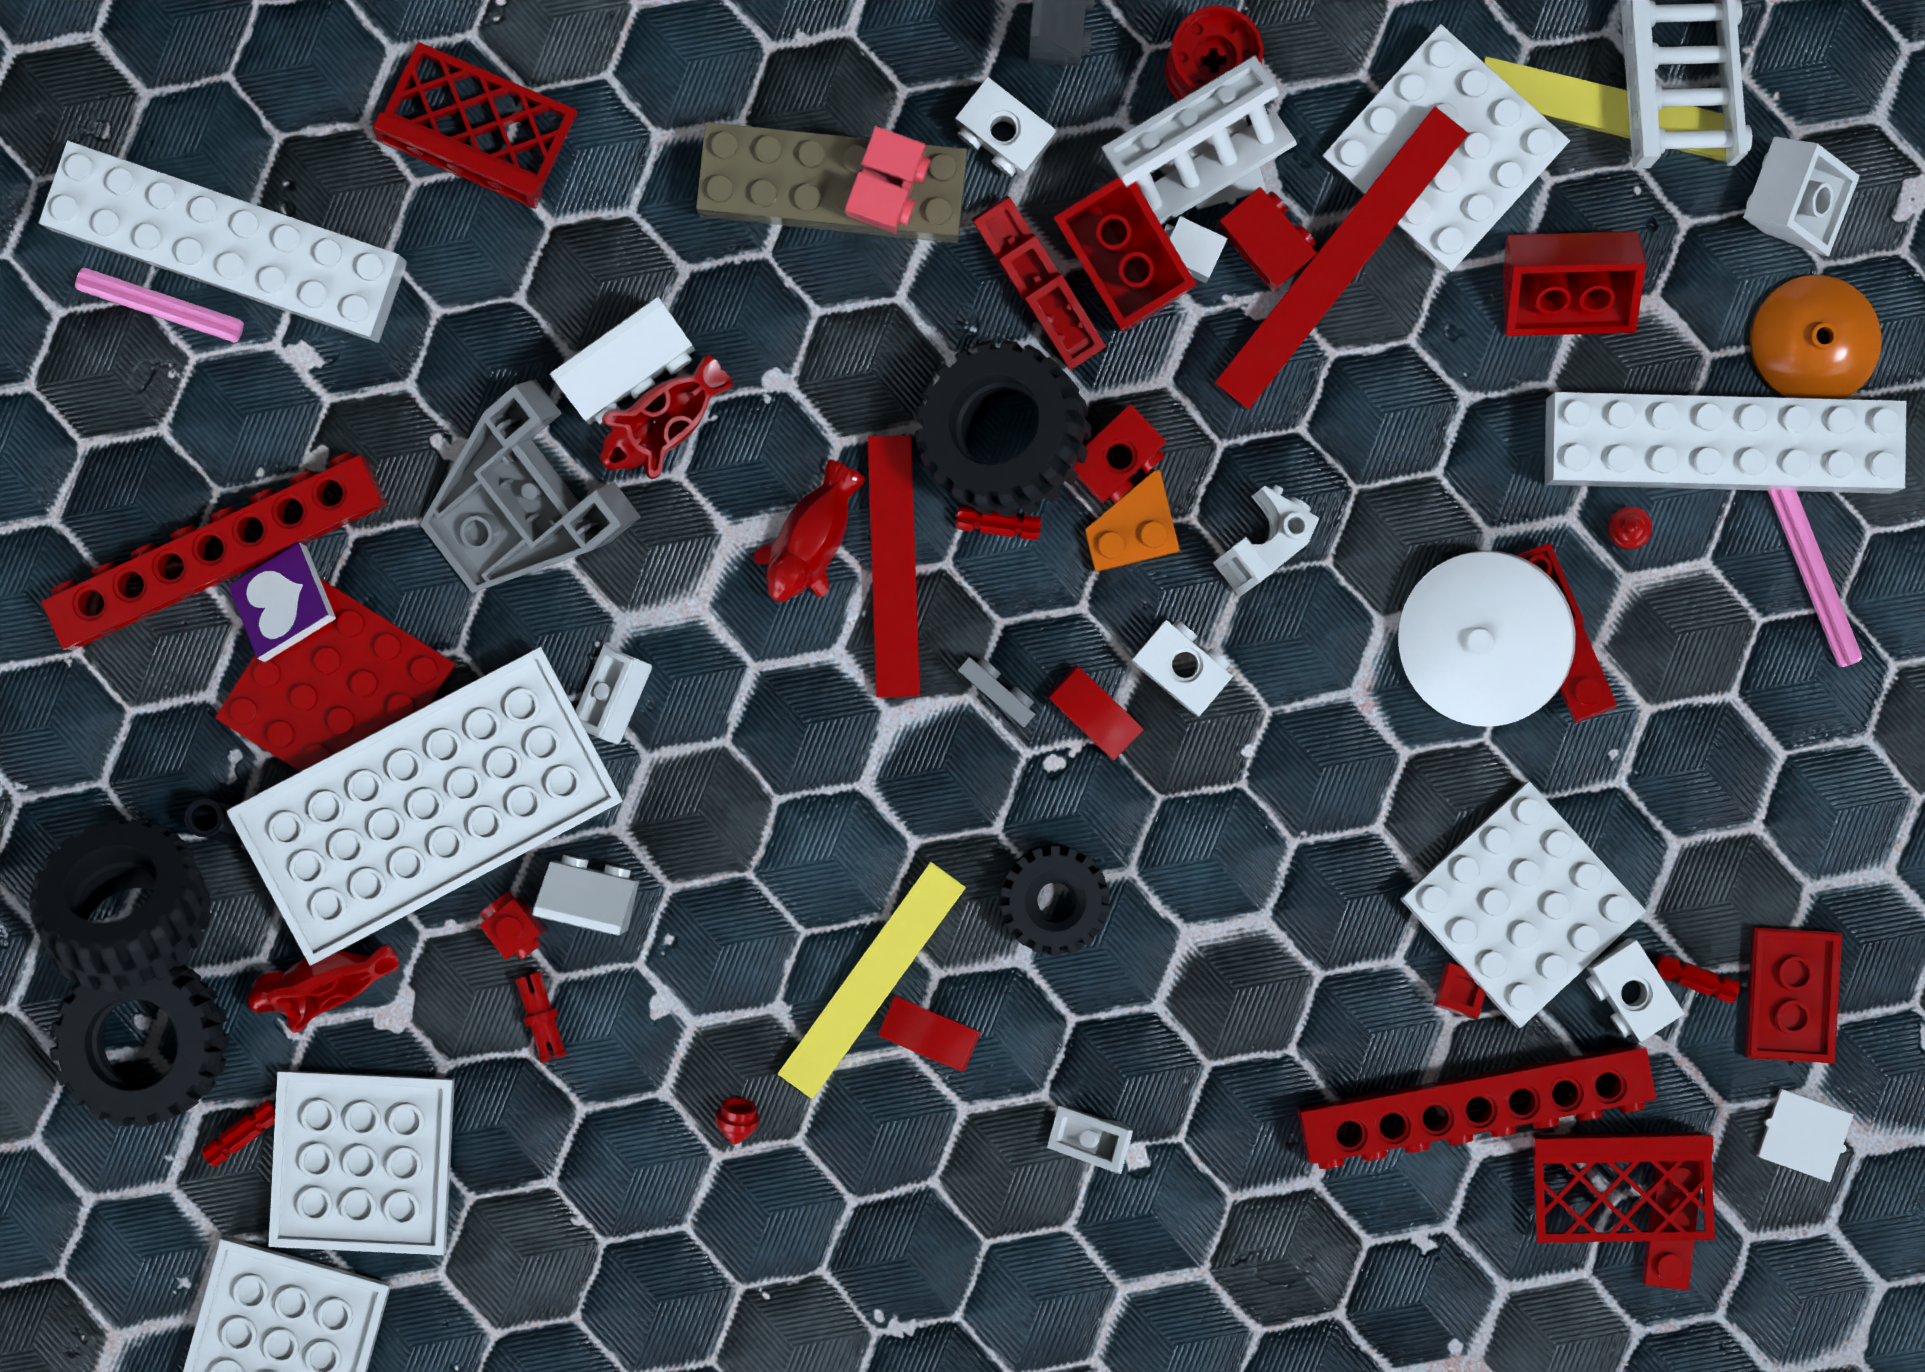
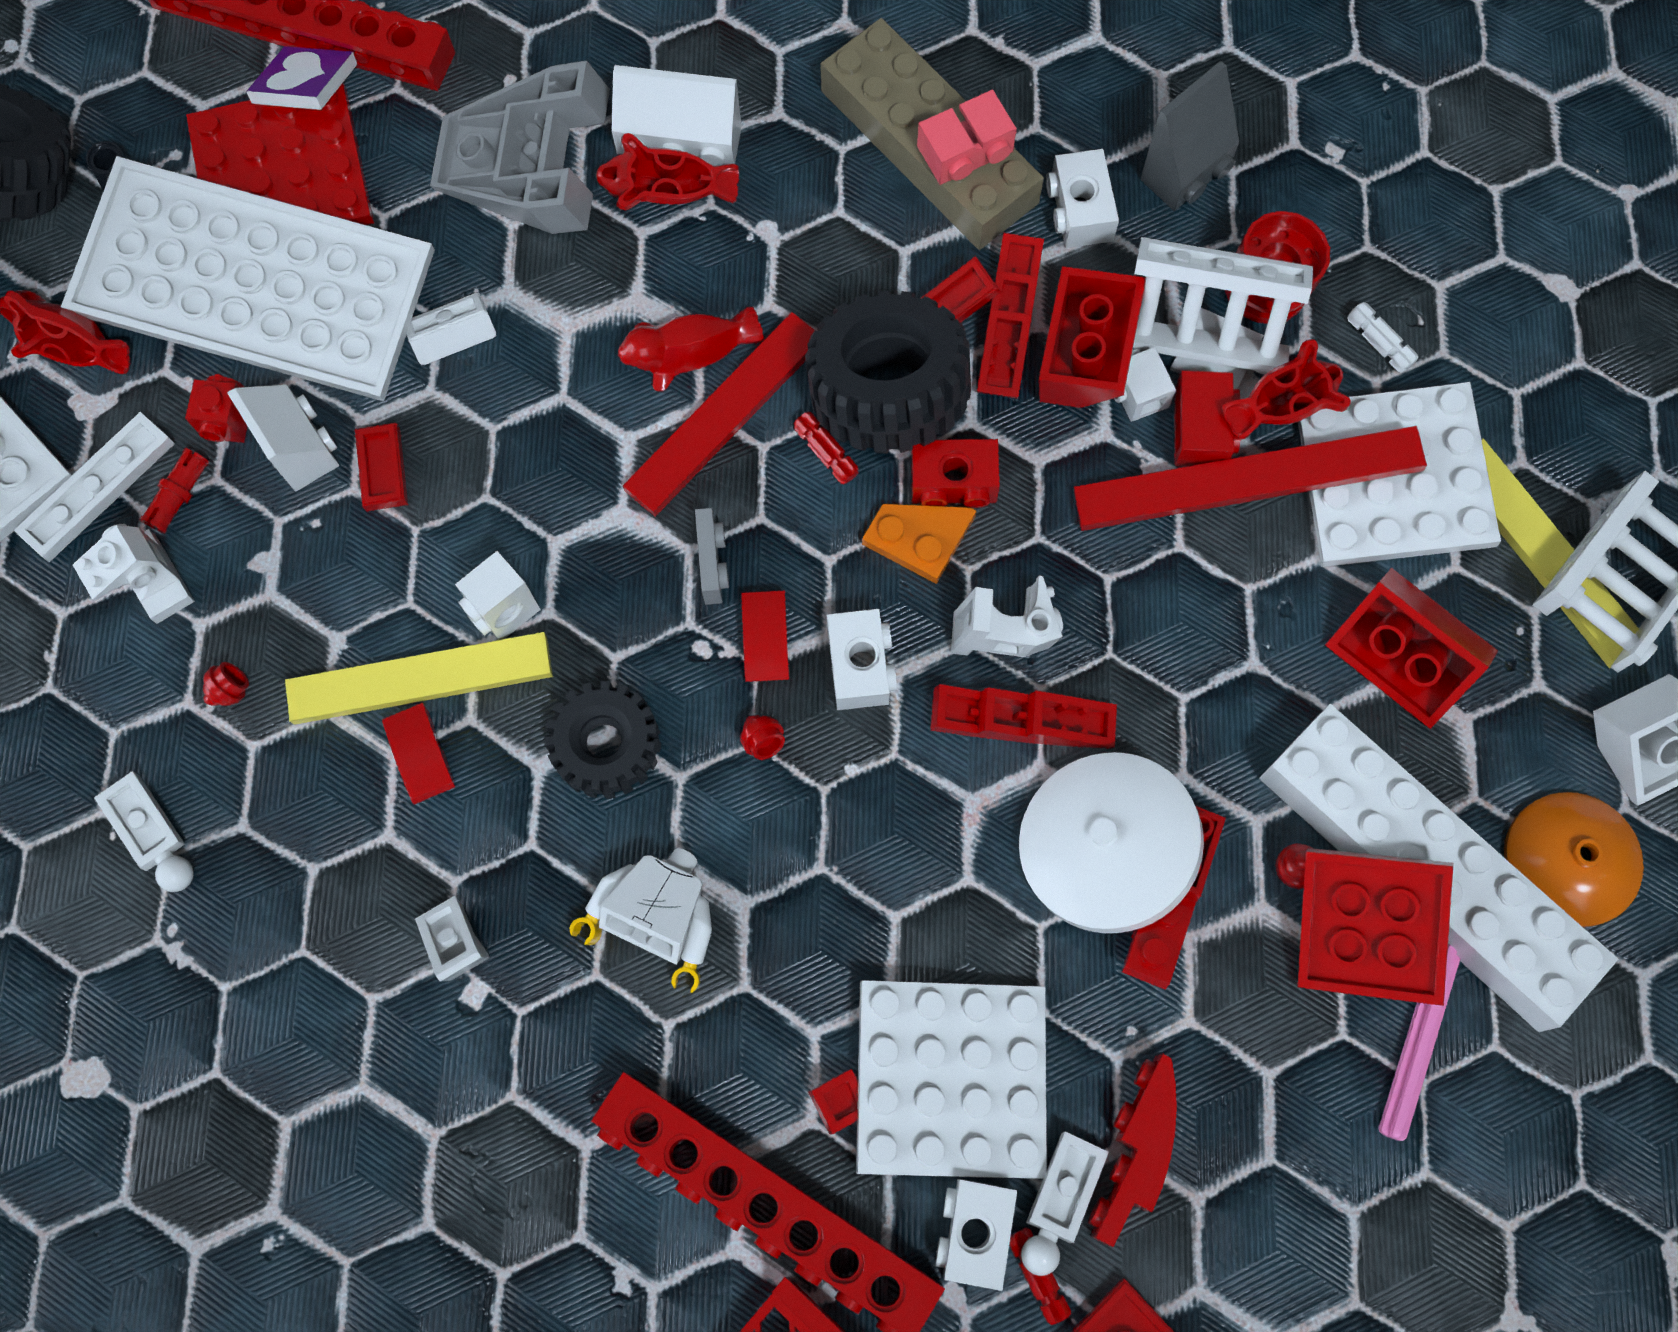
camera: 45 degrees right, 15 degrees down
(478, 1070) = (94, 487): none -> white plate
(585, 1102) = (135, 559): none -> white tile
(675, 851) = (381, 467): none -> red tile
(793, 1270) = (146, 831): none -> white plate
(879, 874) = (496, 597): none -> white brick
(985, 307) = (965, 290): none -> red tile
(1164, 789) = (762, 736): none -> red plate
(1213, 983) = (655, 909): none -> white torso
(1317, 163) = (1289, 393): none -> red animal
(1338, 35) = (1382, 337): none -> white axle
(1339, 598) = (1024, 717): none -> red slope
(1670, 916) = (1062, 1201): none -> white plate
(1687, 816) = (1149, 1132): none -> red slope
(1722, 531) = (1375, 925): none -> red plate

